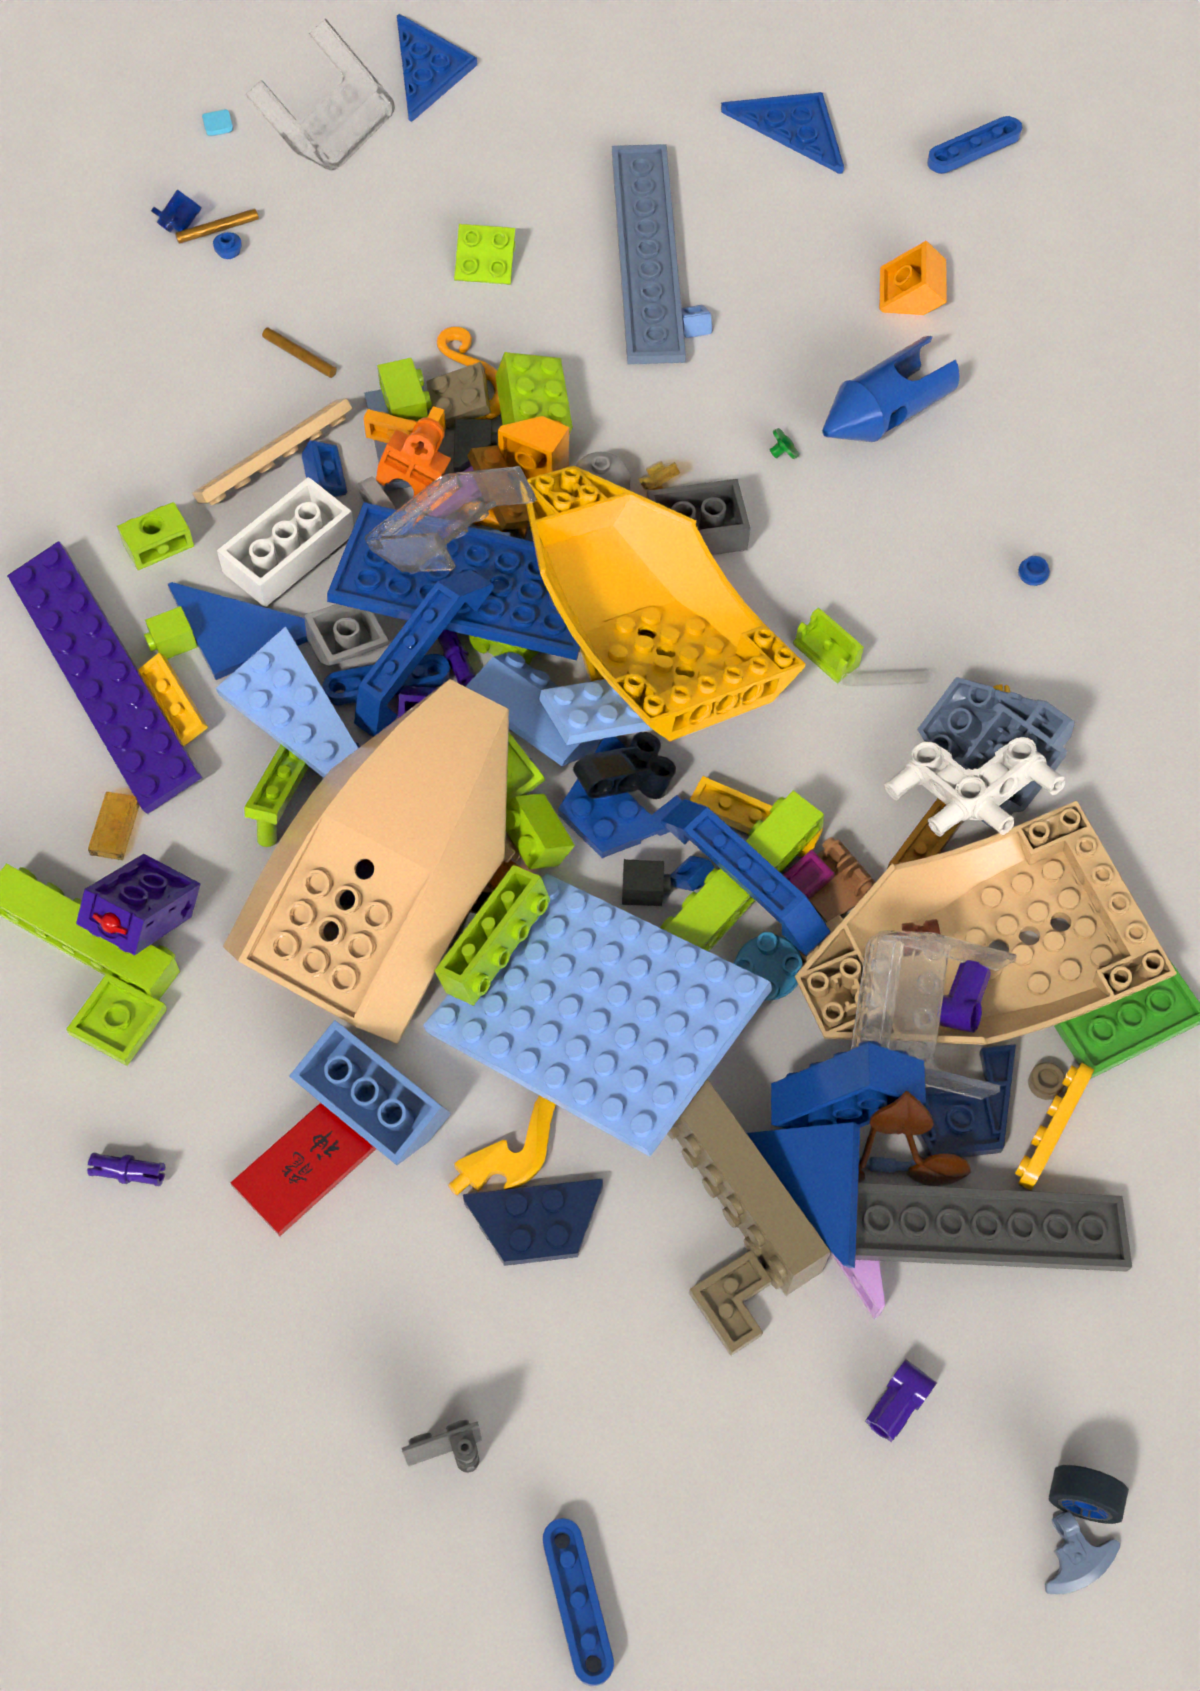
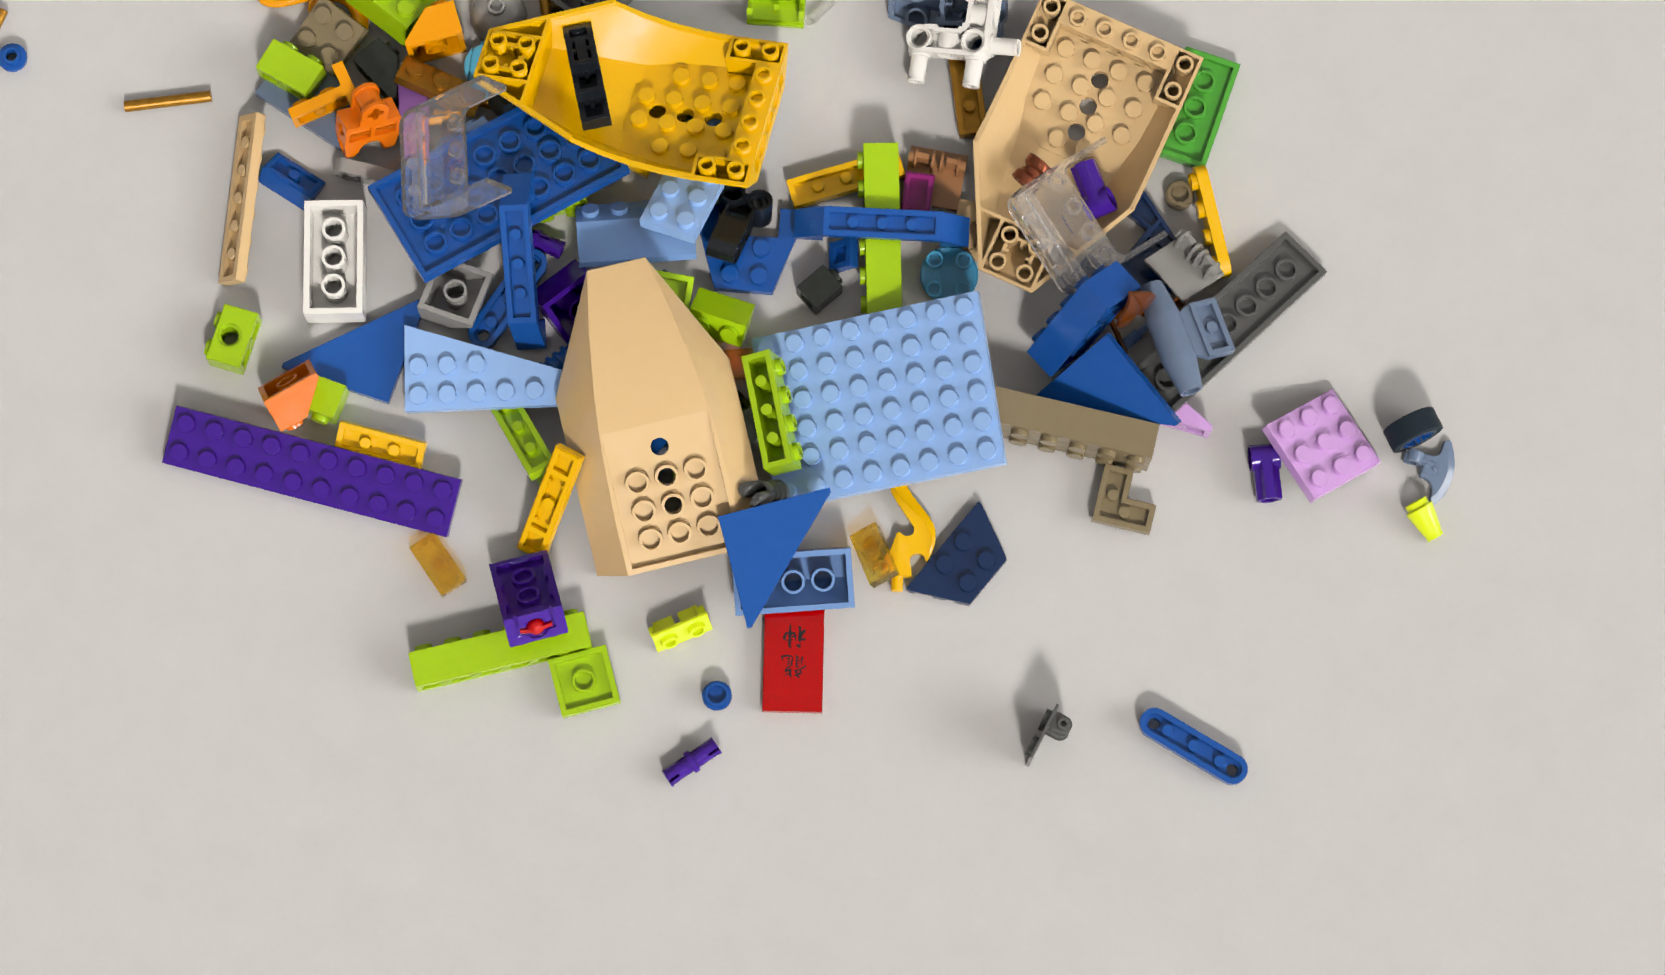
camera: 45 degrees left, 15 degrees up
(135, 600) = (290, 395): none -> orange slope
(208, 1134) = (717, 695): none -> blue plate
(227, 1045) = (692, 624): none -> neon yellow hinge
(244, 845) = (551, 499): none -> yellow plate
(368, 1033) = (763, 544): none -> blue tile
(419, 995) = (764, 491): none -> dark grey hinge
(462, 1138) = (874, 555): none -> clear yellow plate
(612, 555) = (587, 76): none -> black slope
(929, 1193) = (1185, 335): none -> sand blue plate
(978, 1425) = (1321, 445): none -> lavender plate
(992, 1138) = (1185, 266): none -> light grey hinge
(1023, 1597) = (1424, 518): none -> neon yellow cone

